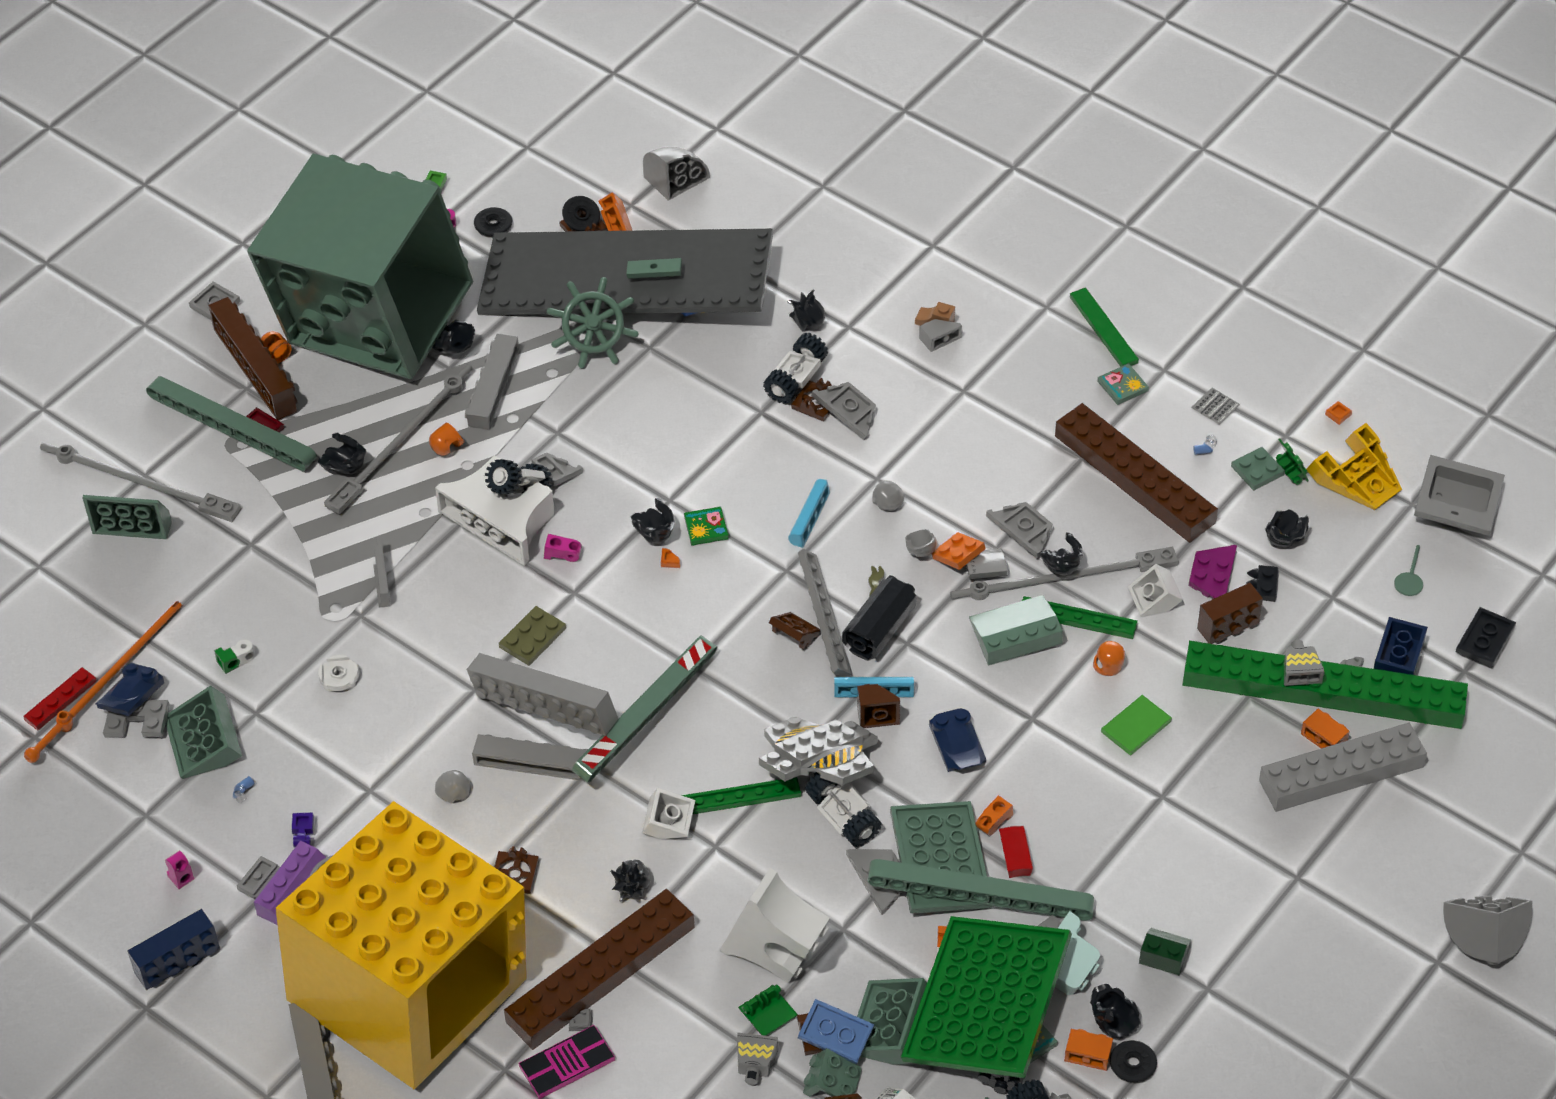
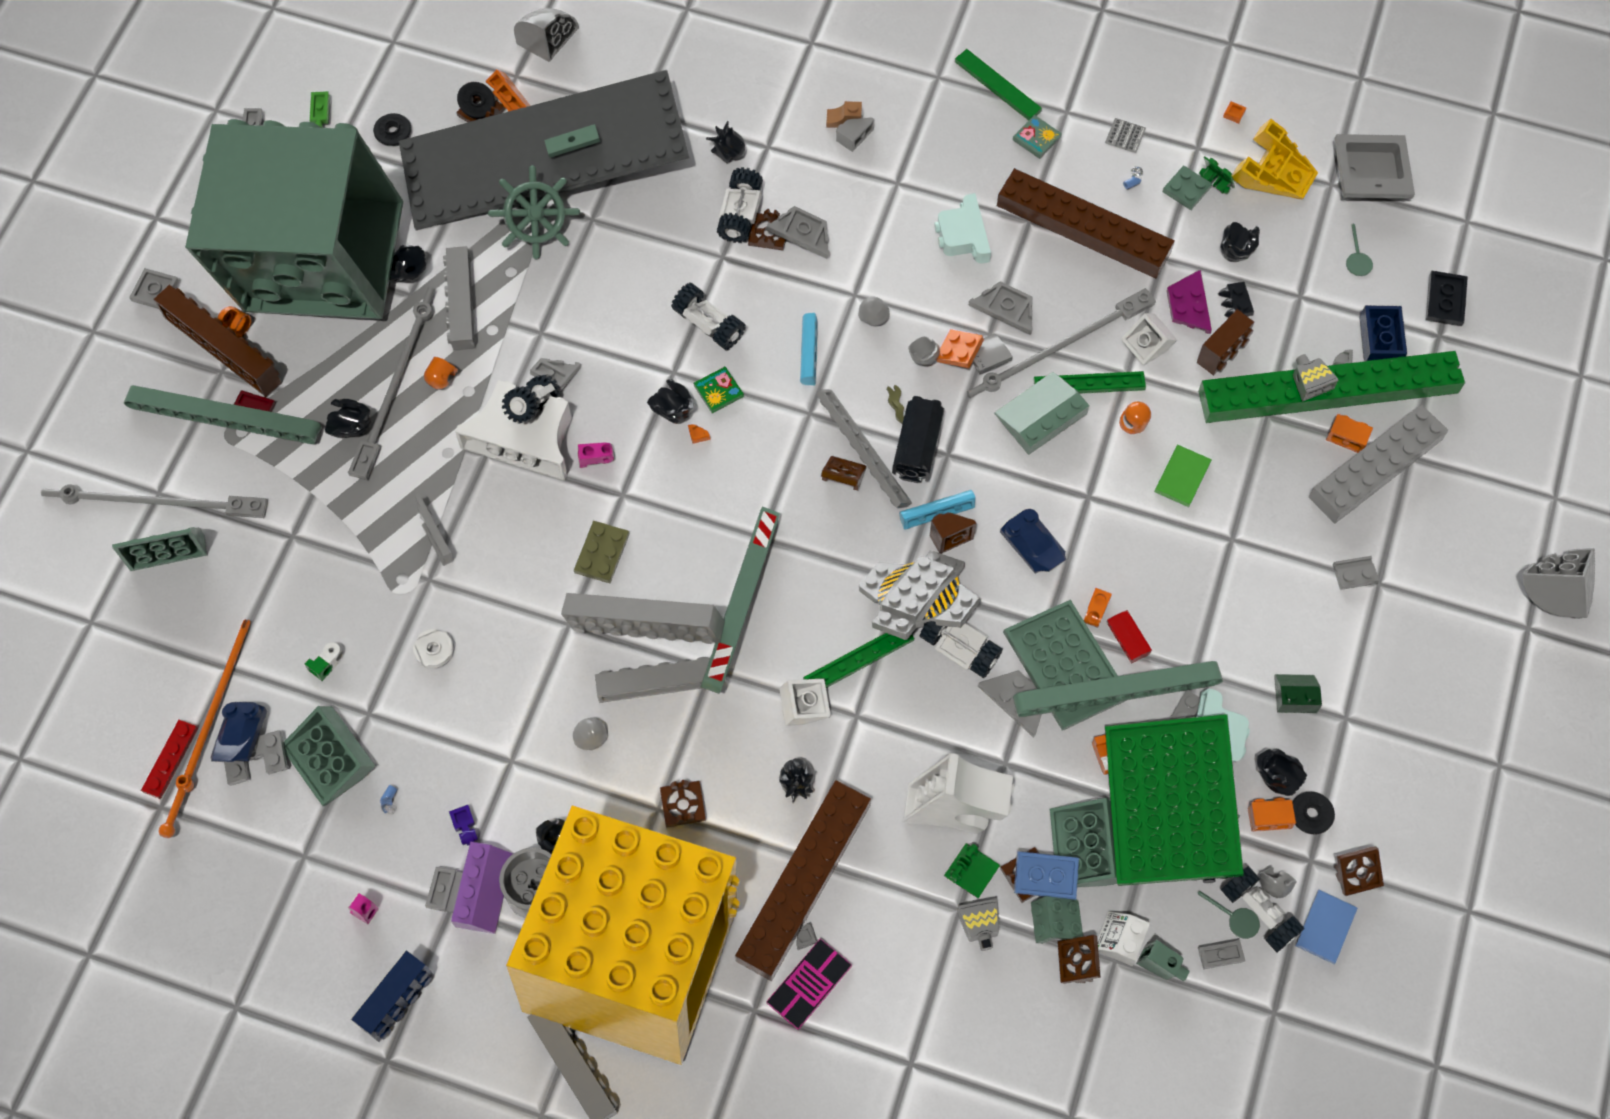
camera: 20 degrees left, 15 degrees up
(733, 471) = (707, 317): none -> plate
(1008, 447) = (963, 231): none -> light aqua brick
(1062, 561) = (1058, 332): black hair -> none
(1276, 860) = (1355, 572): none -> light grey plate

